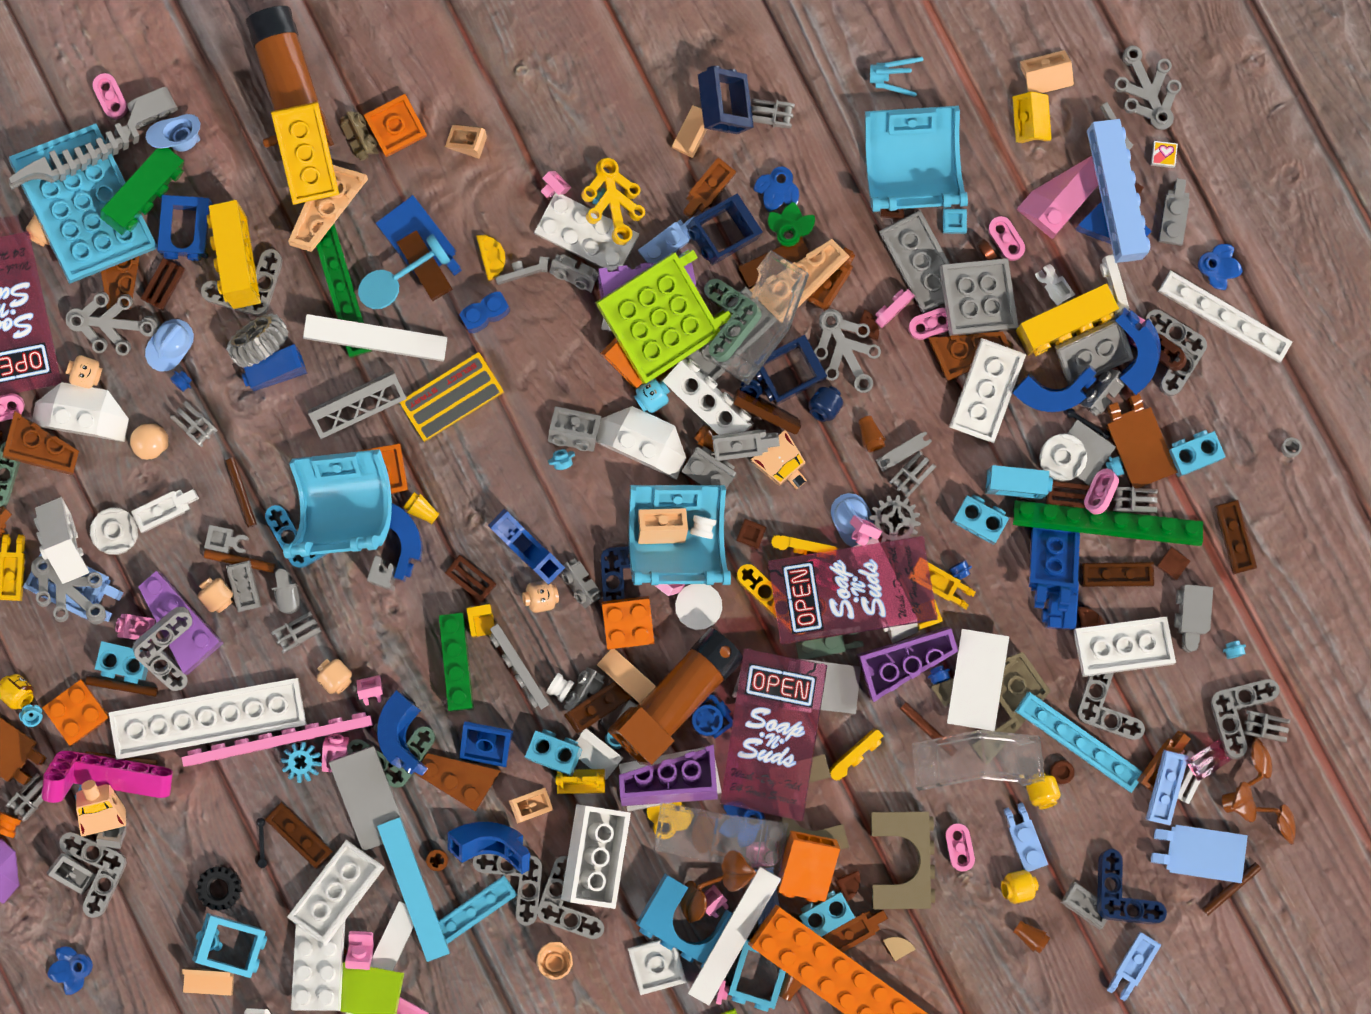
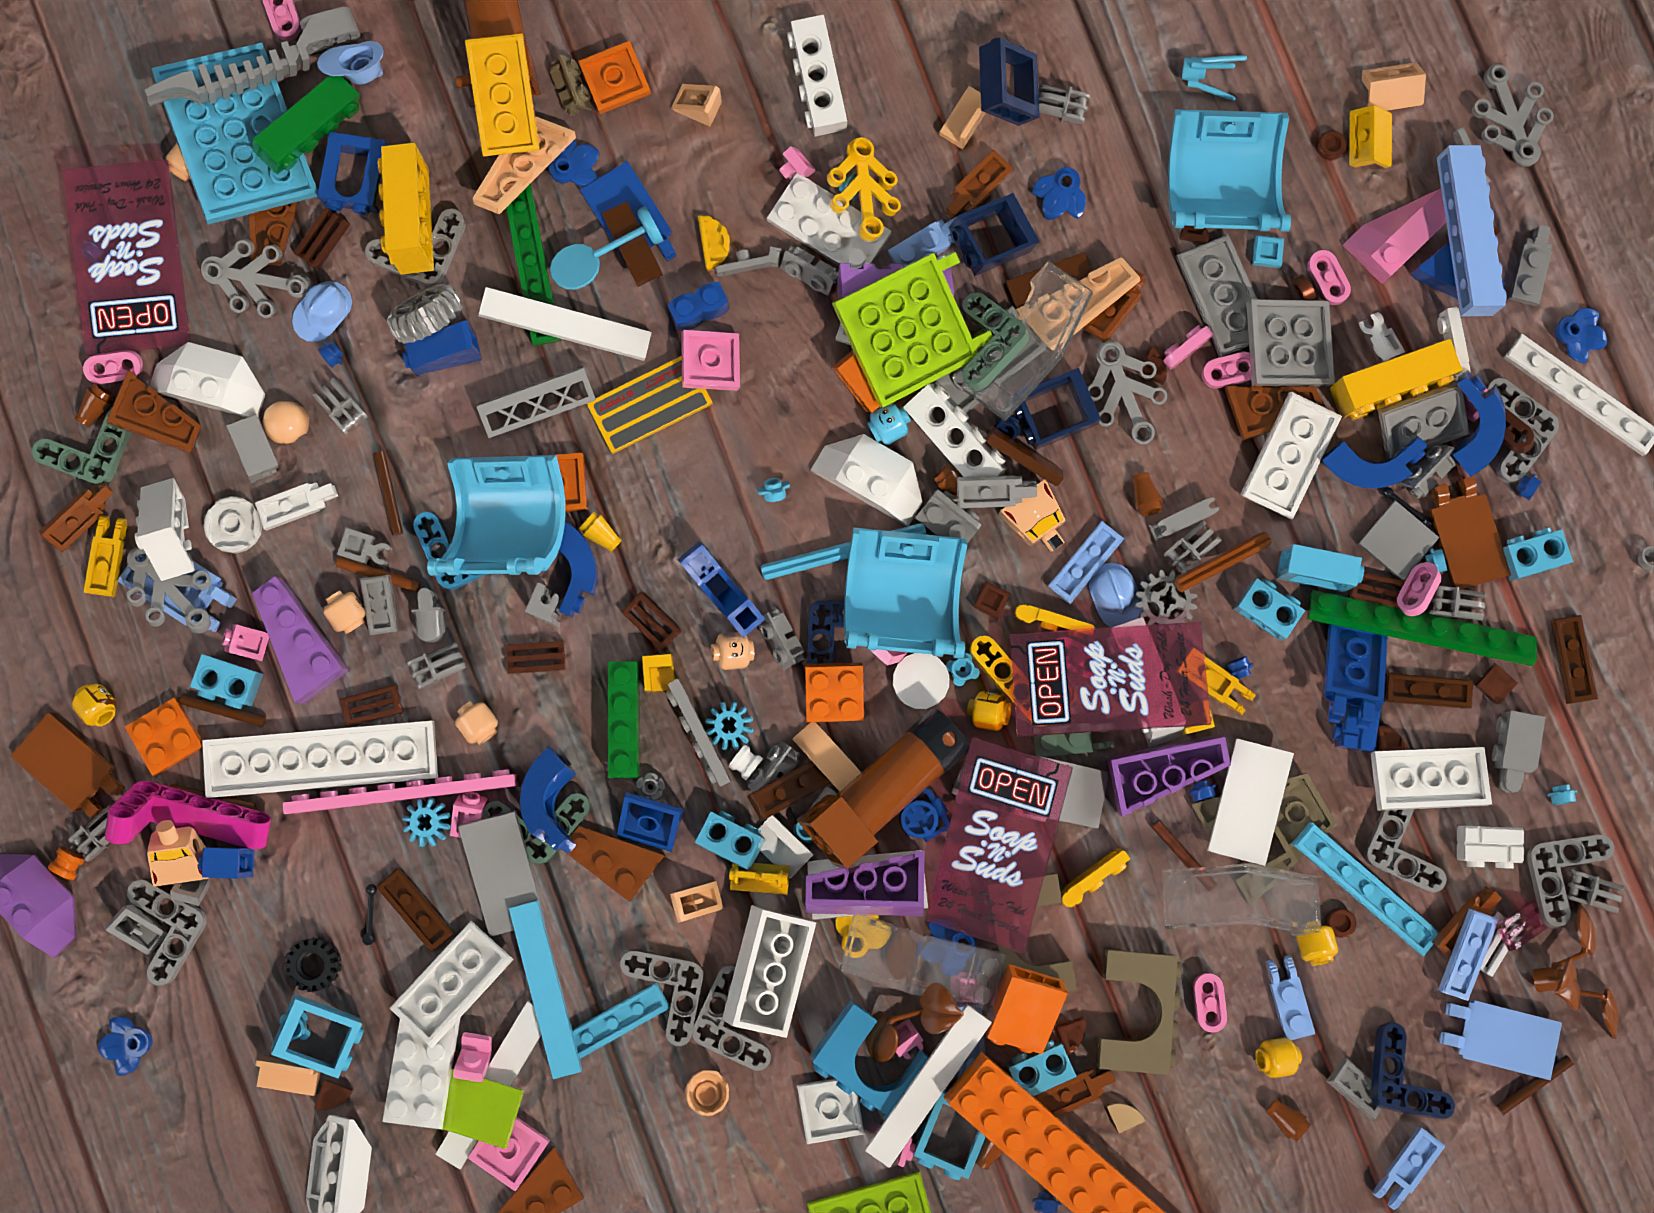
camera: 10 degrees right, 0 degrees up
(31, 720) = (110, 741): medium azure plate -> none
(84, 372) = (216, 332): light nougat head -> none
(124, 466) = (253, 448): none -> light grey hinge
(140, 810) = (227, 862): none -> blue brick
(156, 651) = (264, 669): light grey beam -> none
(246, 994) = (332, 1095): none -> copper tile
(264, 663) = (396, 699): none -> copper tile
(357, 620) = (535, 646): none -> copper tile
(369, 687) = (517, 741): bright pink tile -> none
(372, 199) = (579, 163): none -> blue plate
(433, 854) = (573, 948): dark orange bush -> none
(483, 708) = (658, 786): none -> light grey plate
(489, 838) = (645, 937): blue arch -> none
(499, 356) = (710, 360): none -> bright pink plate
(535, 659) = (739, 724): none -> medium azure gear
(559, 73) = (814, 33): none -> white brick
(574, 429) = (791, 455): light grey bracket -> none
(606, 511) = (820, 557): none -> medium azure axle
(662, 526) = (887, 580): light nougat panel -> none
(703, 527) = (935, 586): white wheel -> none
(733, 587) = (960, 677): none -> medium azure plate
(757, 625) = (989, 710): none -> yellow head
(790, 222) = (1073, 234): green plate -> none
(825, 403) = (1095, 453): dark blue head -> none
(826, 495) = (1085, 562): none -> light blue tile
(863, 530) = (1129, 608): bright pink tile -> none
(938, 484) = (1222, 561): none -> dark orange axle
(999, 126) = (1331, 145): none -> copper tile
(1063, 457) = (1376, 542): white tile -> none
(1164, 154) = (1525, 196): tile -> none
(1178, 696) = (1490, 844): none -> white brick
(1186, 397) = (1528, 486): none -> blue plate

